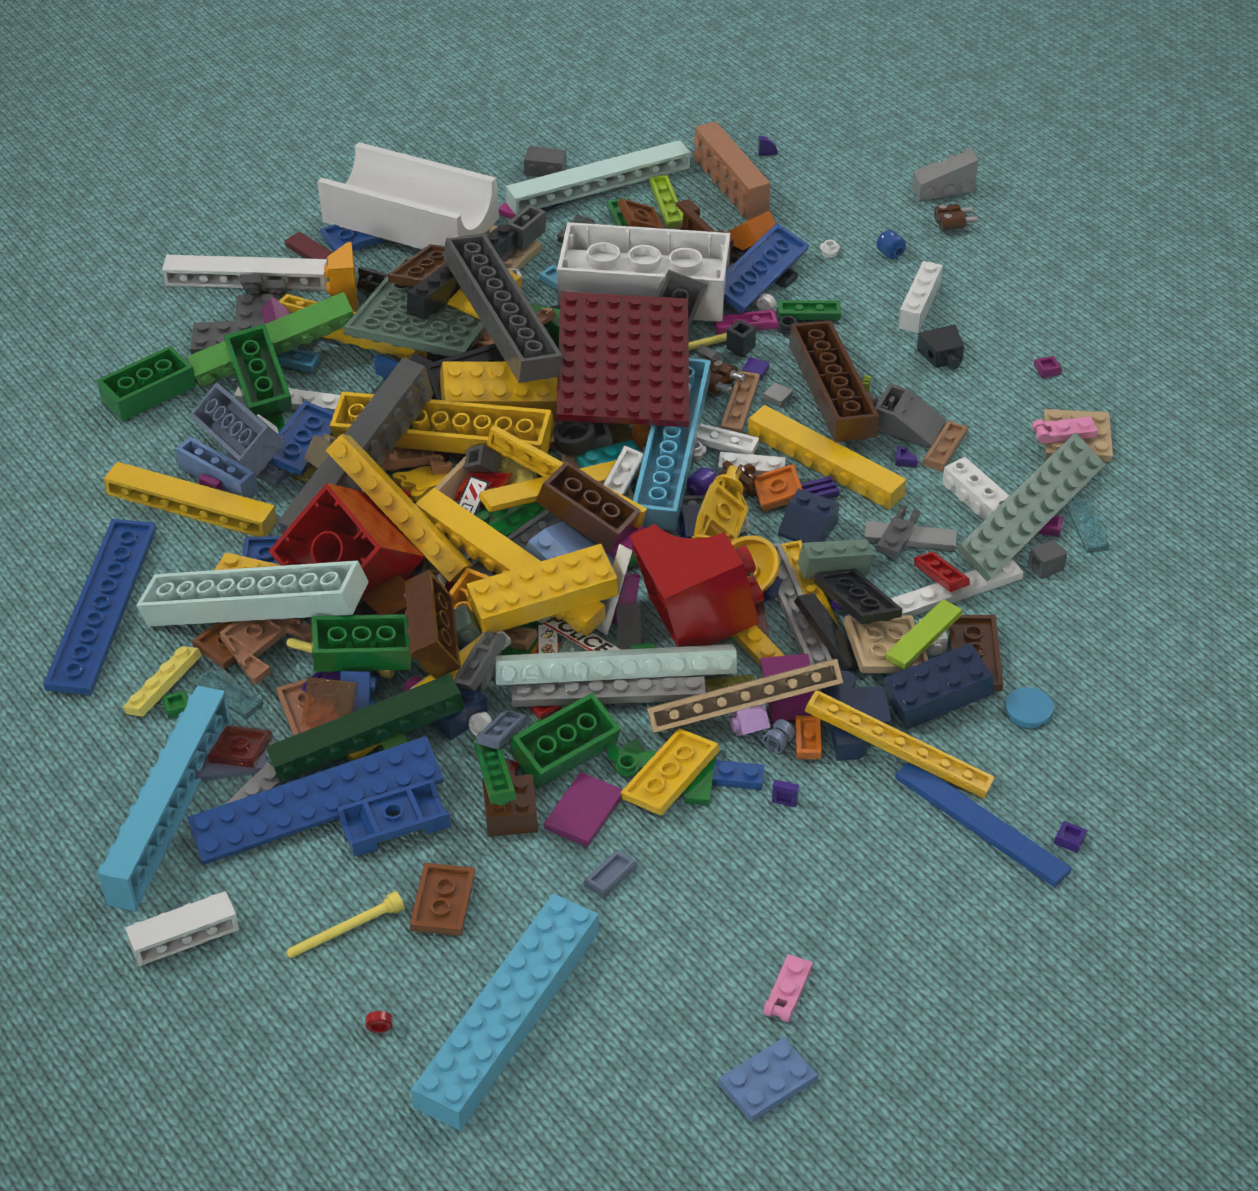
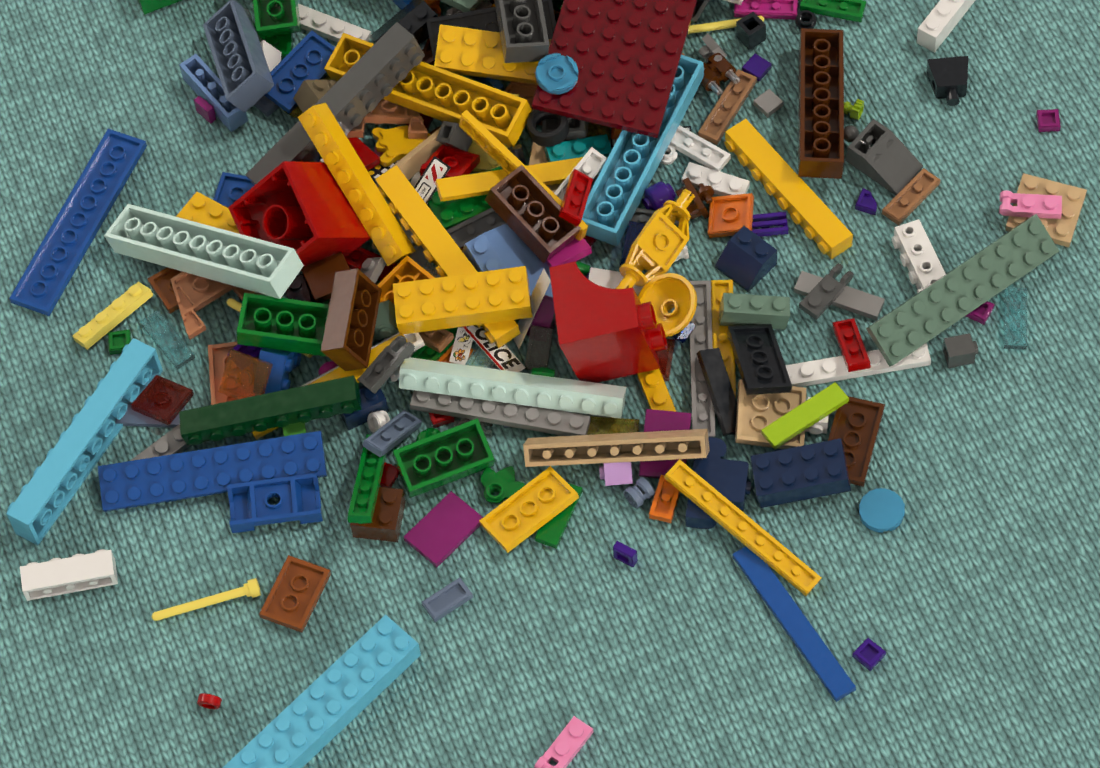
camera: 20 degrees right, 15 degrees up
(190, 500) = (183, 120): yellow brick -> none
(574, 383) = (556, 73): none -> dark azure tile
(626, 485) = (575, 197): none -> red tile
(738, 774) = (591, 523): blue plate -> none

